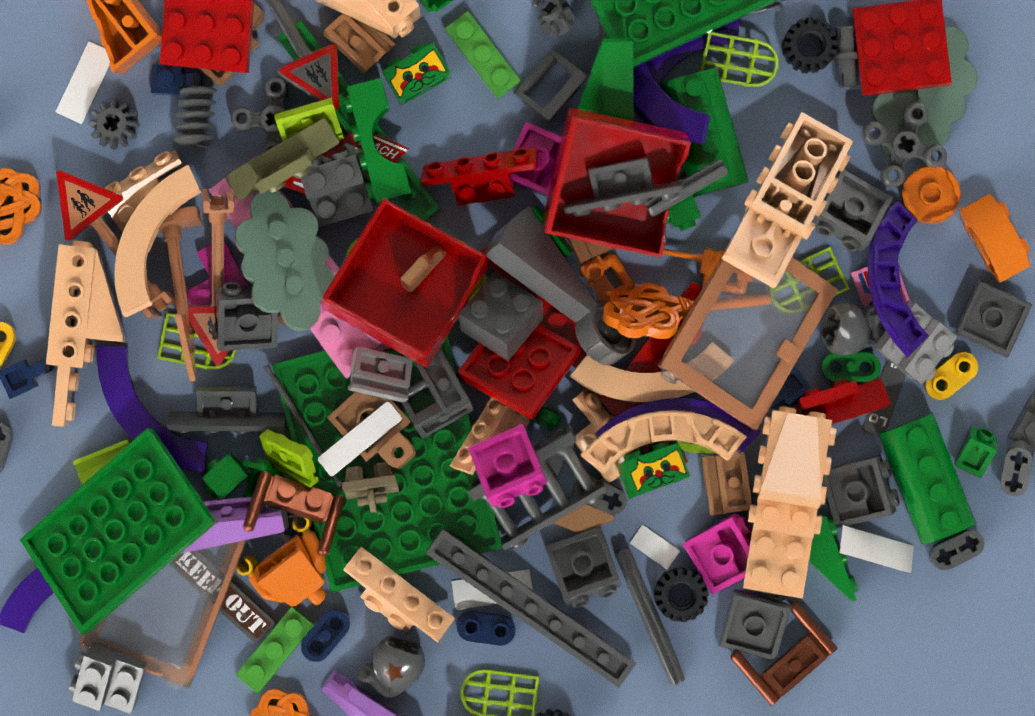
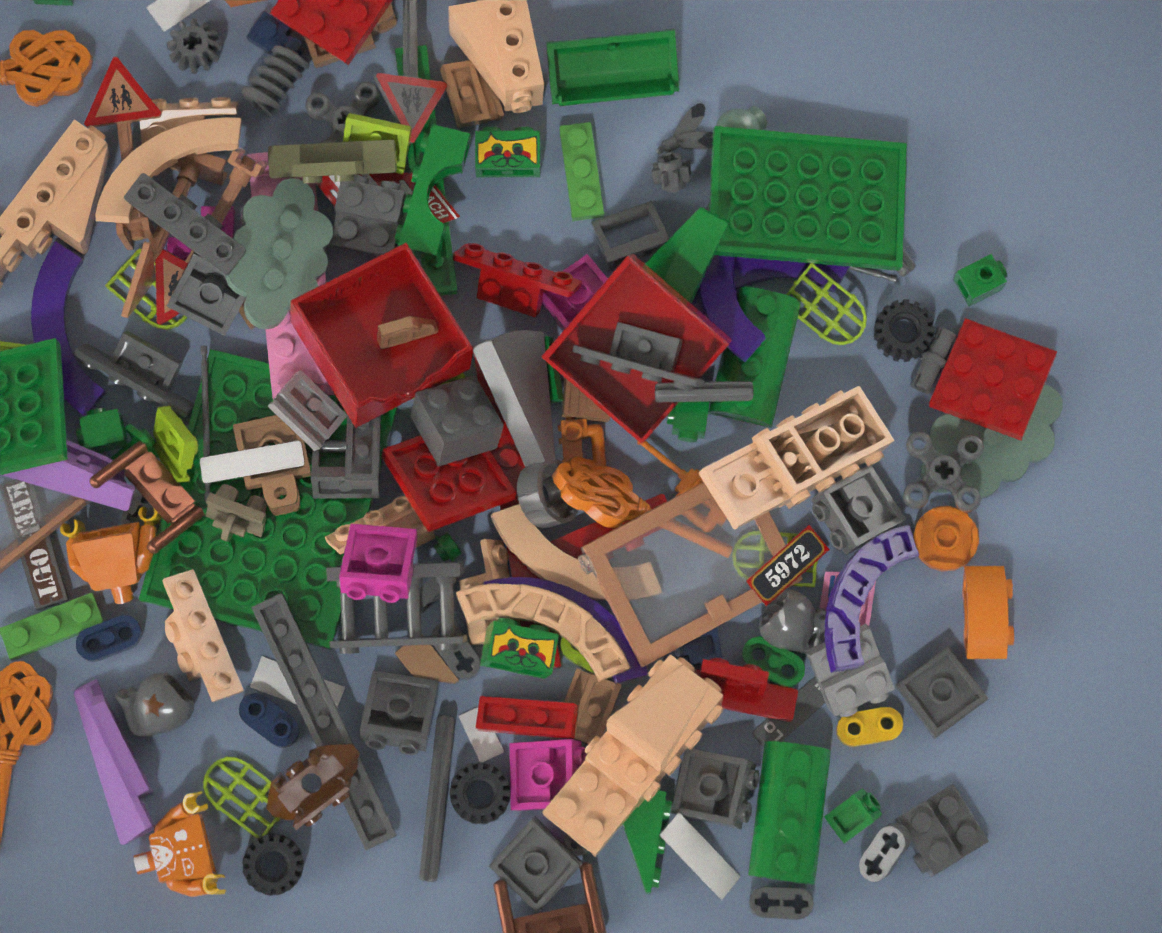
camera: 30 degrees right, 10 degrees down
(198, 280) = (185, 224): none -> dark grey bracket
(563, 641) = (292, 801): none -> reddish brown piece
(685, 517) = (527, 717): none -> red plate
(820, 285) = (787, 565): none -> sticker

